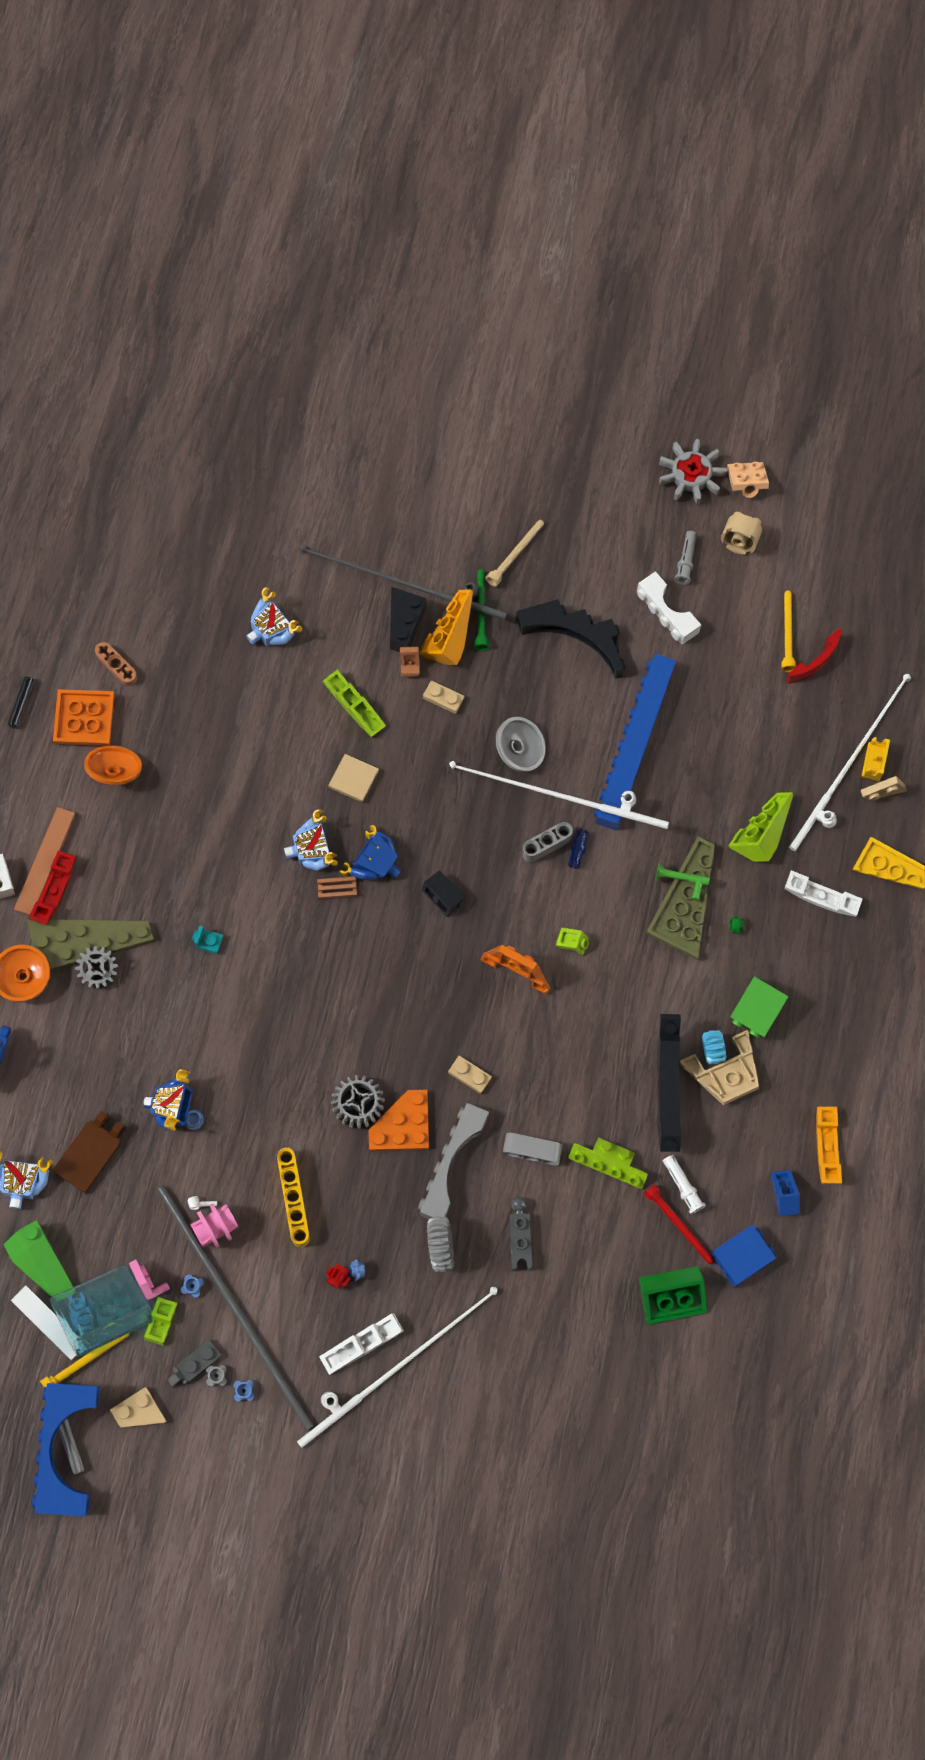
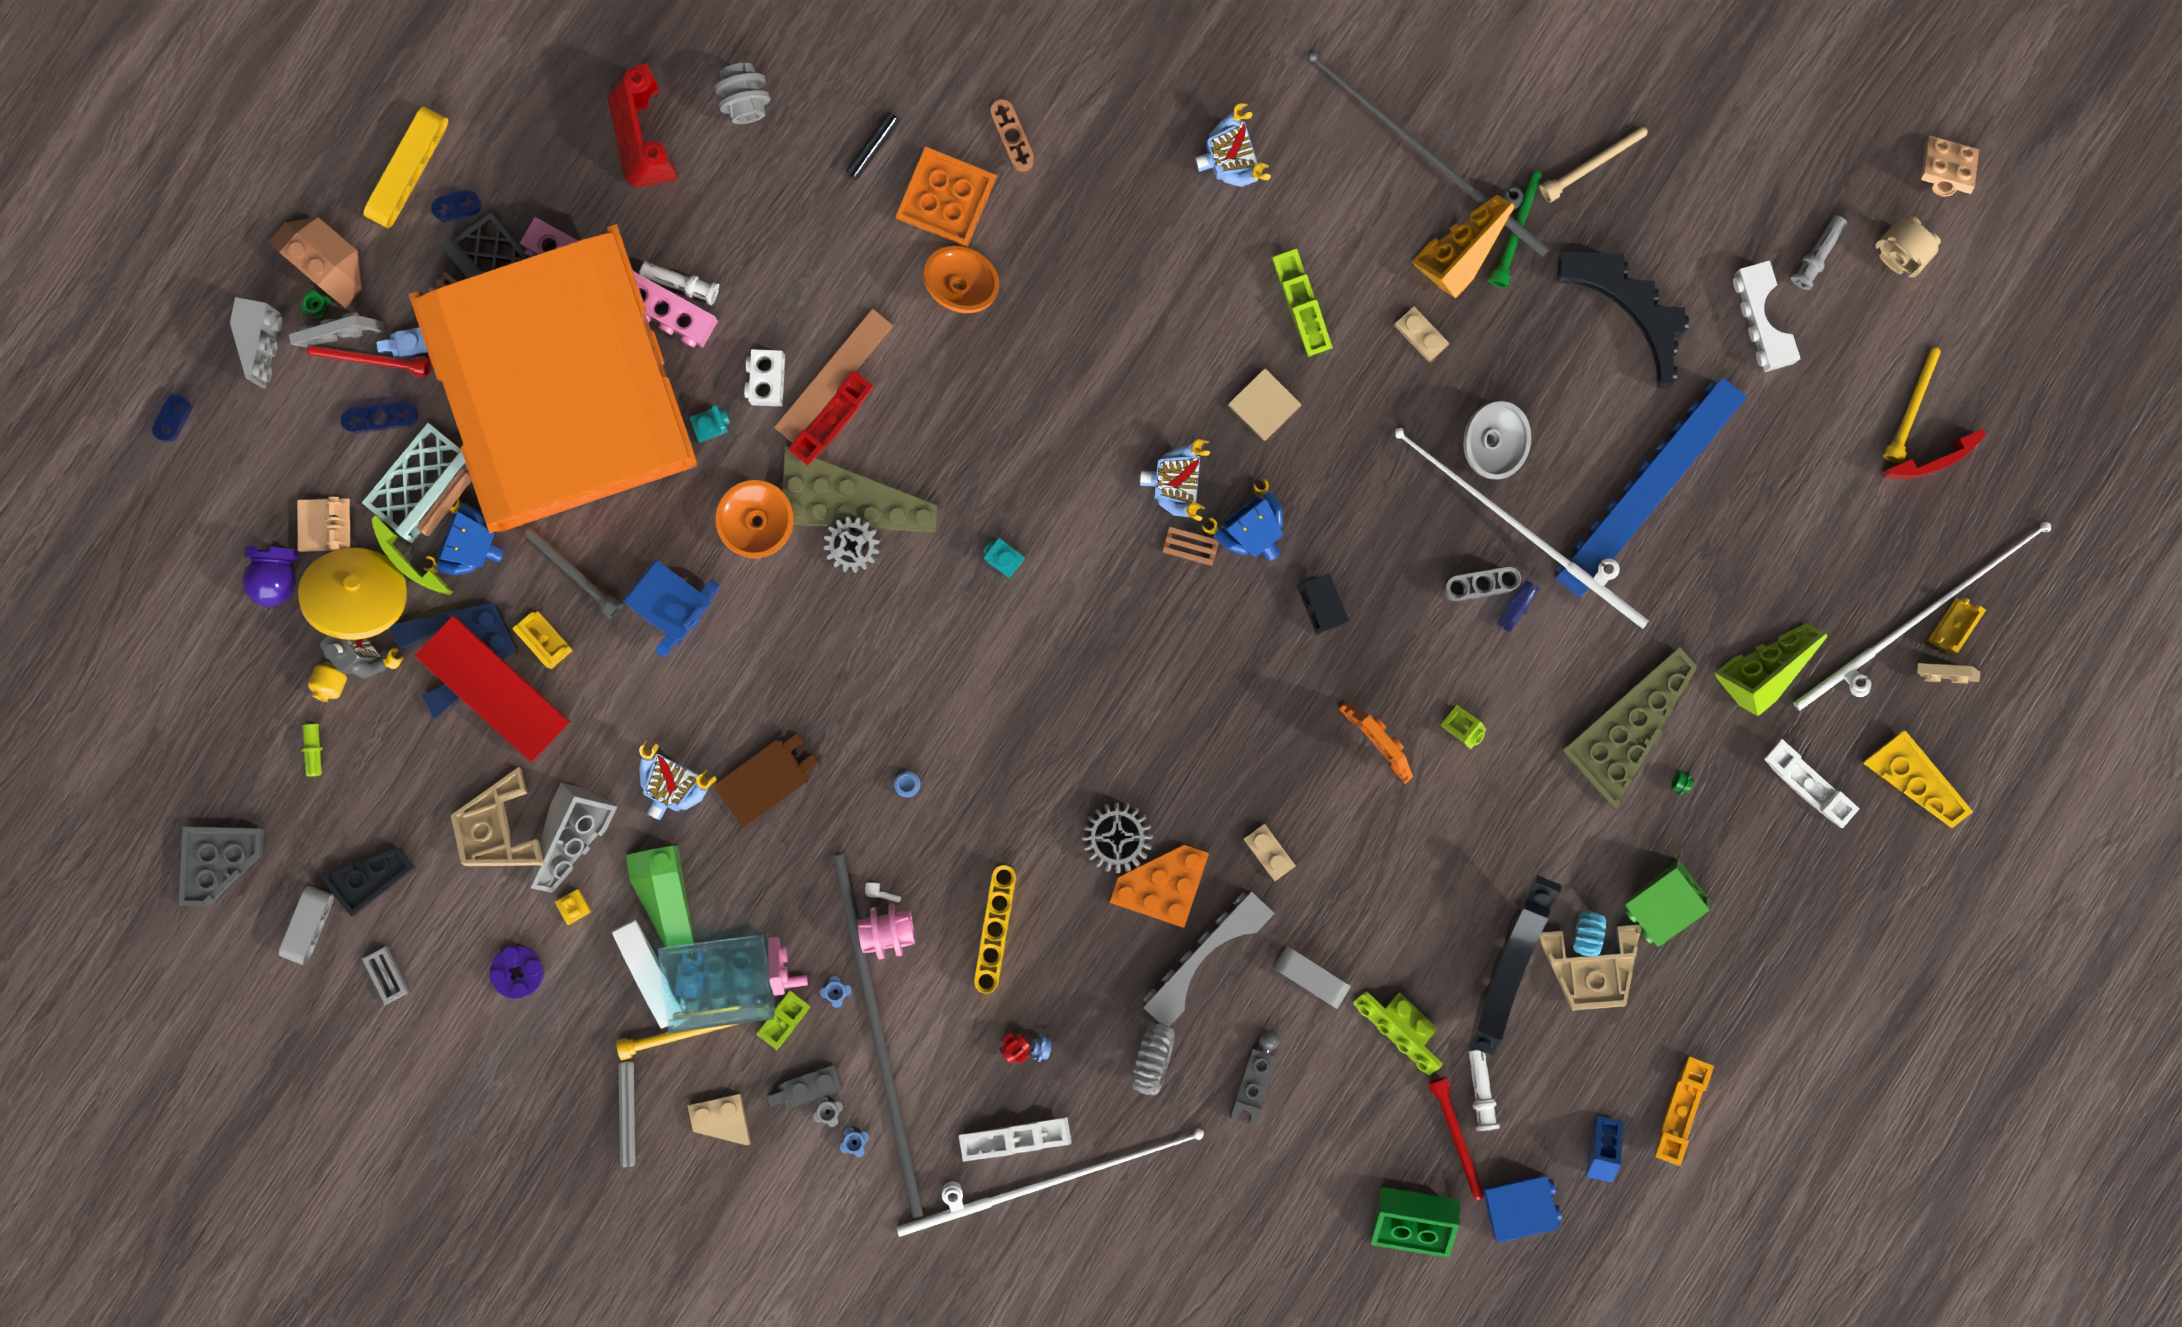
camera: 25 degrees right, 15 degrees up
(53, 1493) = (589, 1181): blue arch -> none
(171, 1102) = (885, 756): torso -> none
(406, 616) = (1411, 207): black wedge -> none
(410, 661) = (1395, 271): nougat bracket -> none
(683, 468) = (1891, 131): light grey gear -> none
(697, 879) = (1656, 707): bright green piece -> none

